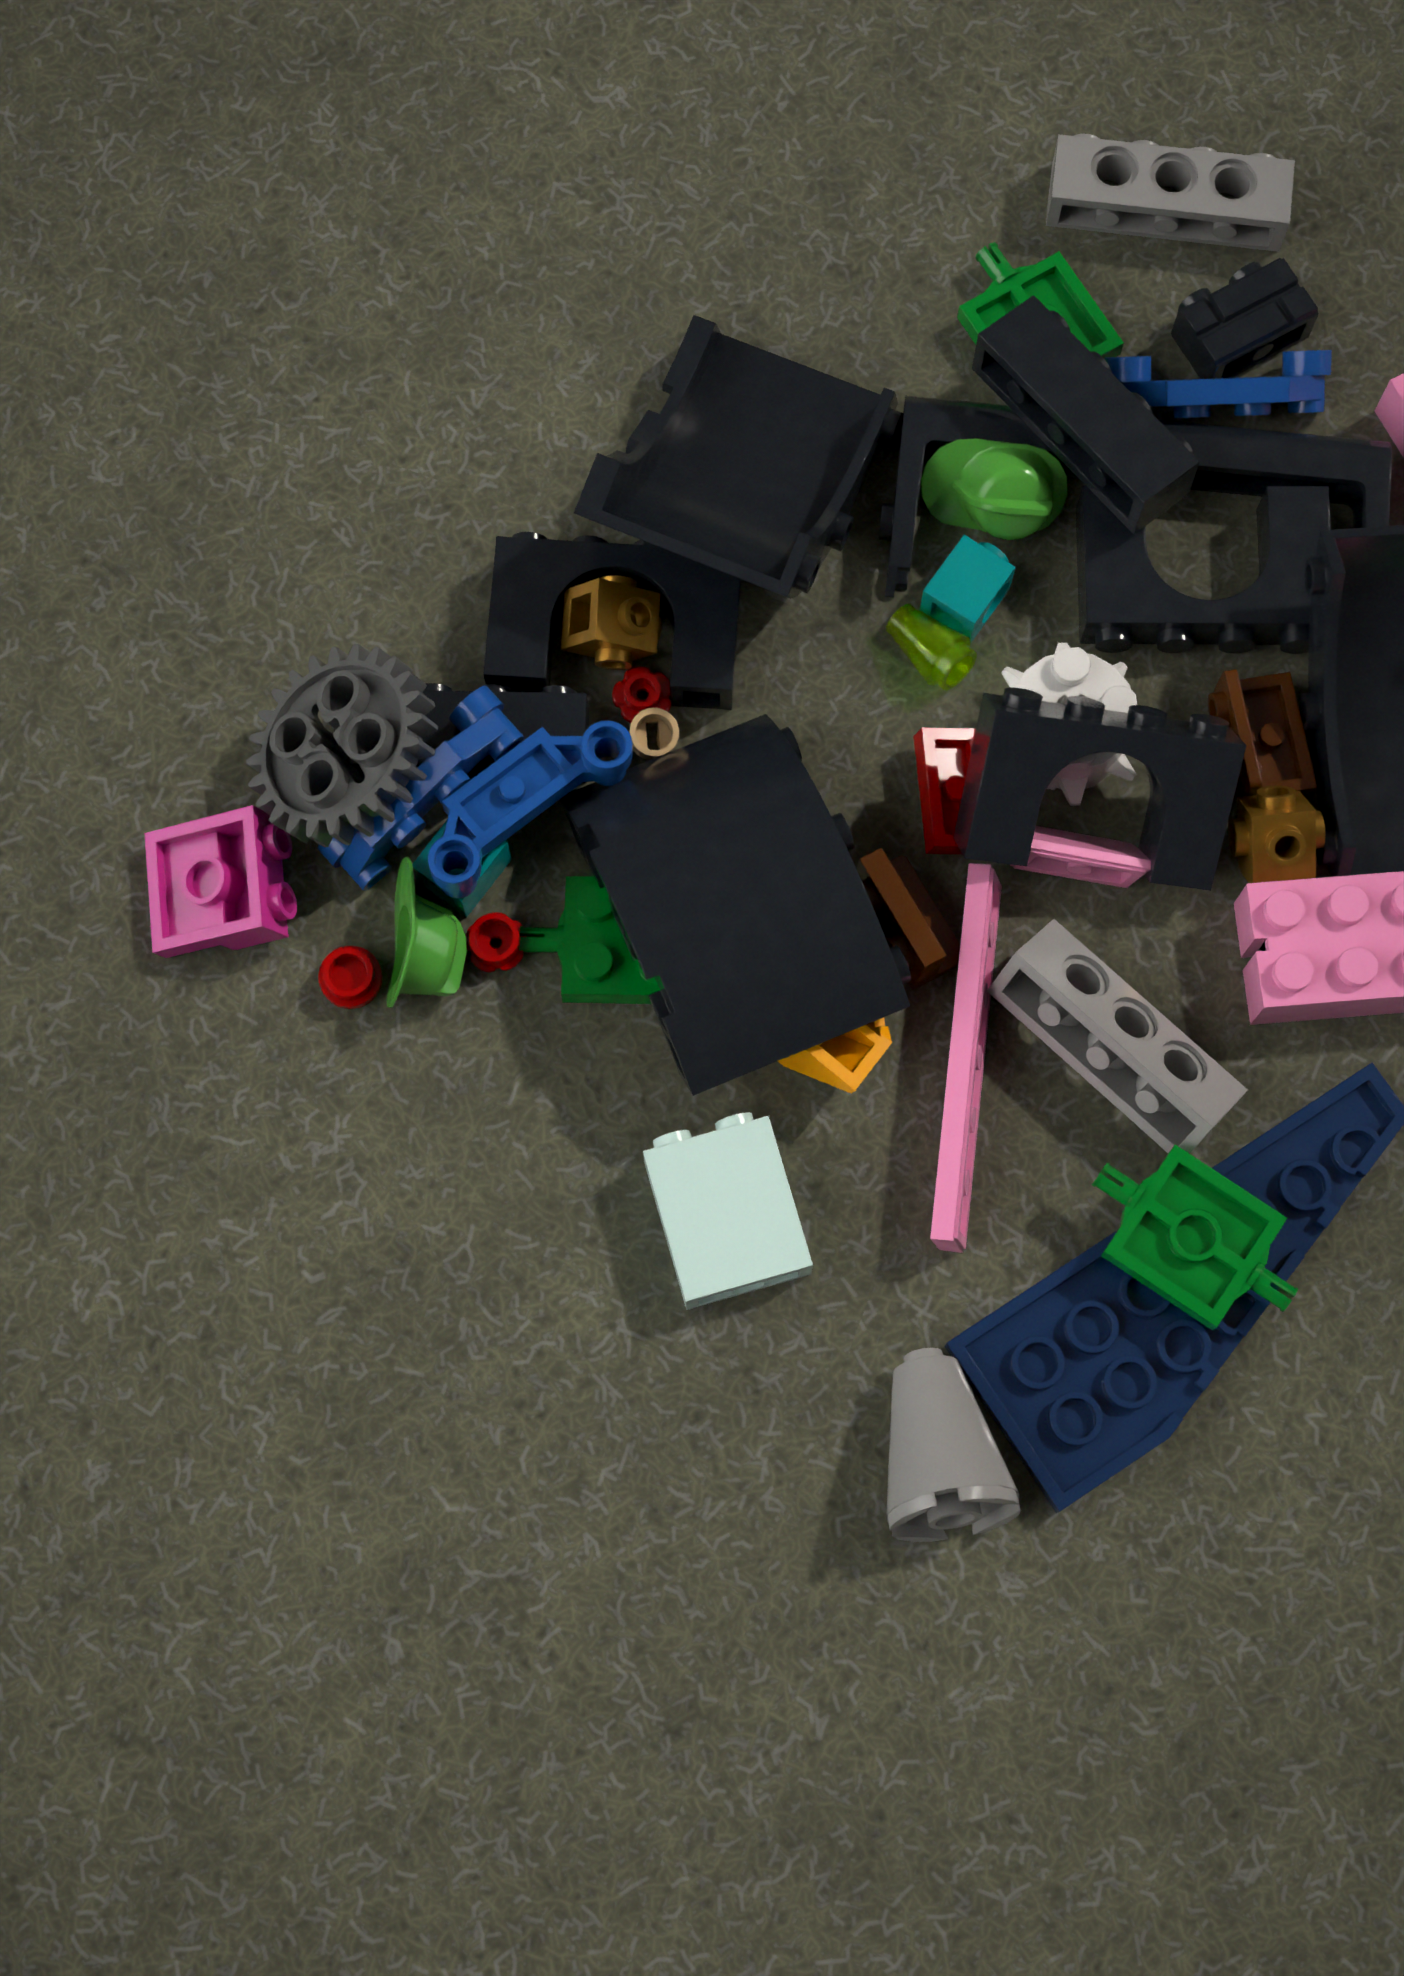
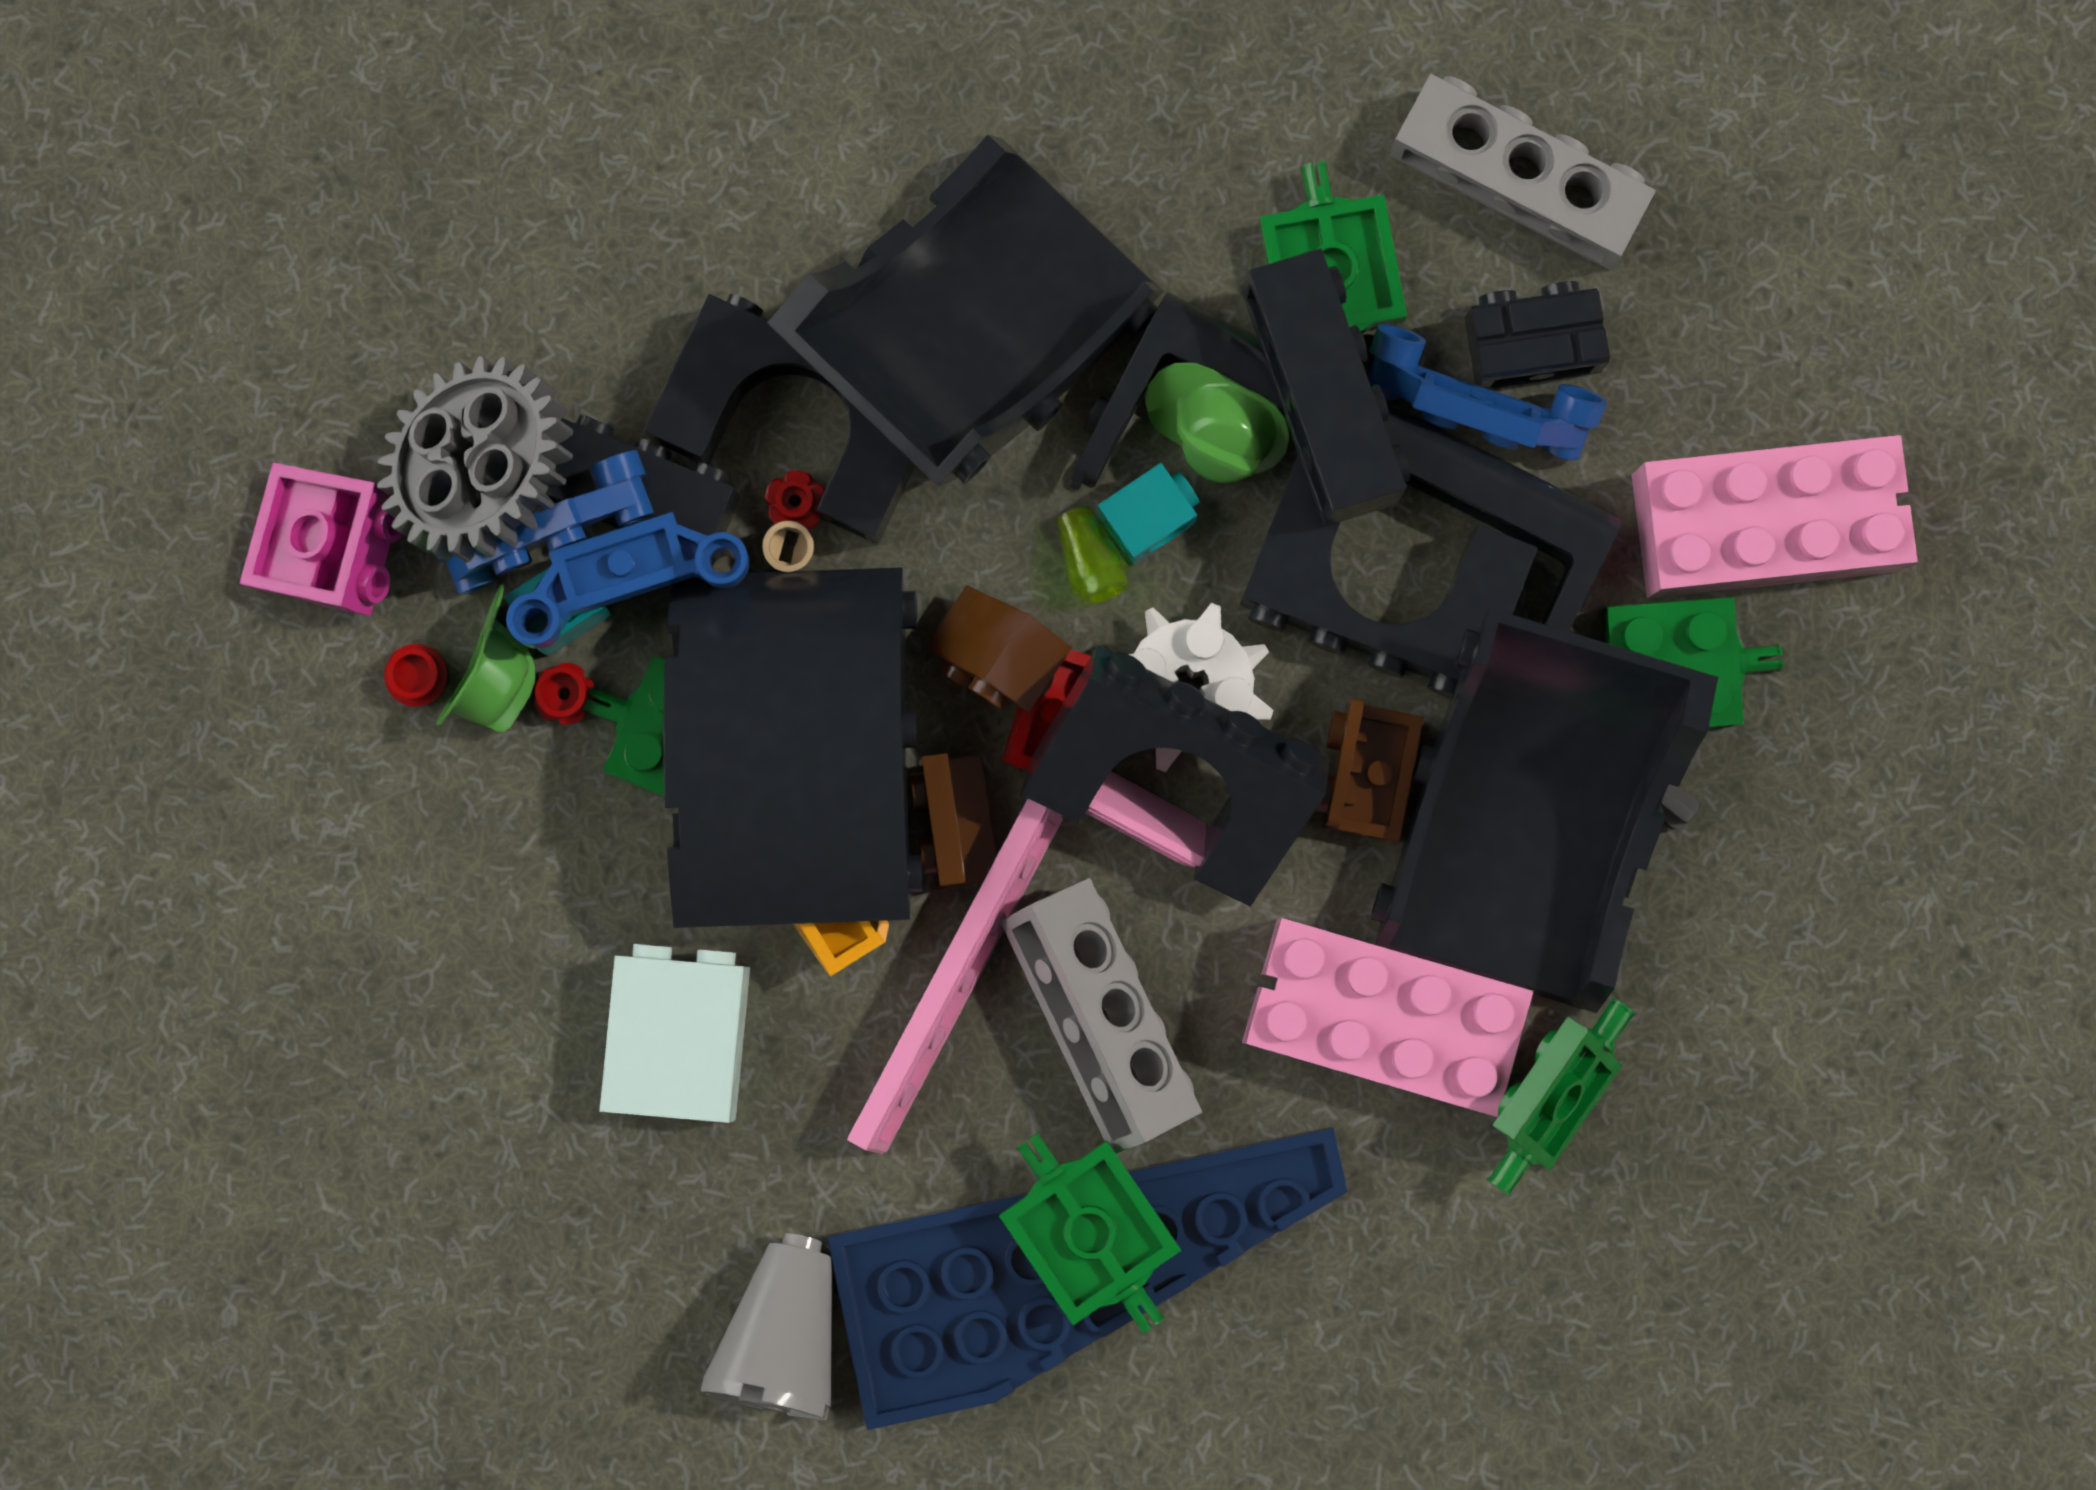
camera: 25 degrees right, 10 degrees up
(611, 621) = (788, 421): pearl gold brick -> none
(886, 744) = (996, 650): none -> reddish brown brick
(1276, 835) = (1335, 879): pearl gold brick -> none

